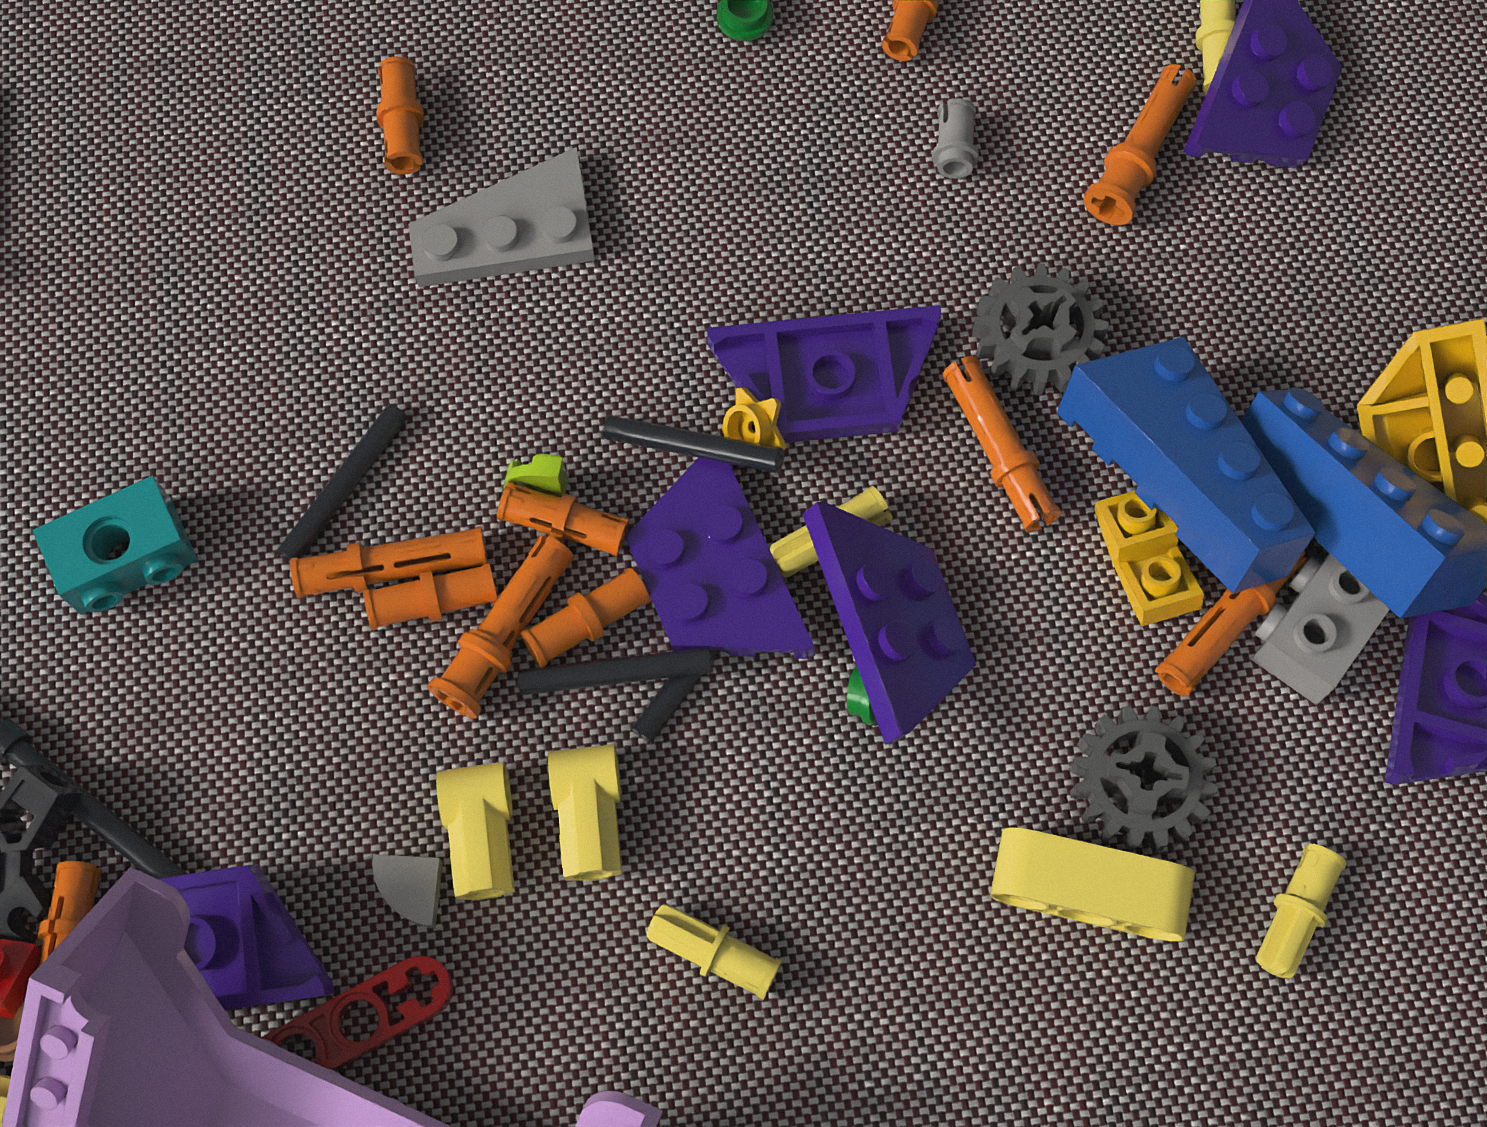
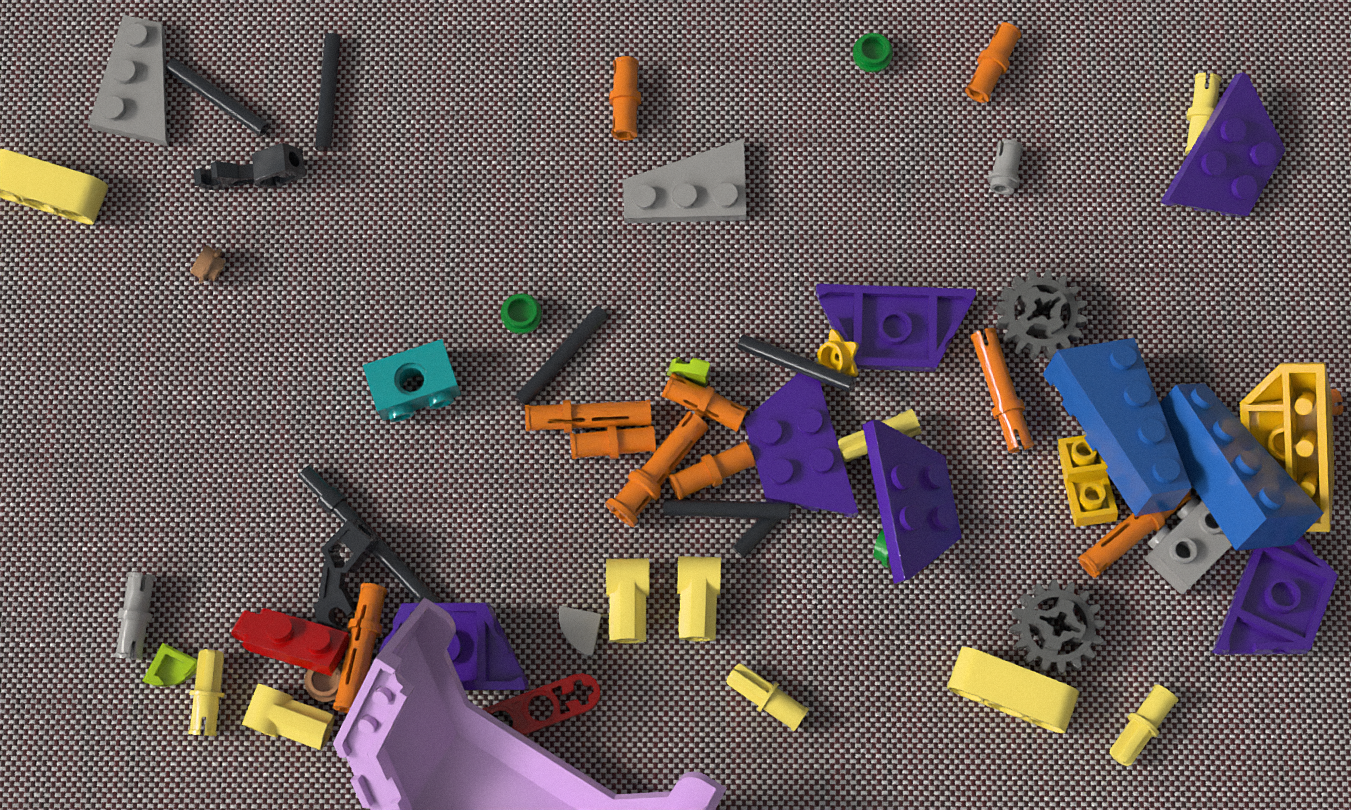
camera: 10 degrees right, 5 degrees up
(276, 429) = (521, 313): none -> green plate
(1132, 162) = (1125, 202): orange pin -> none

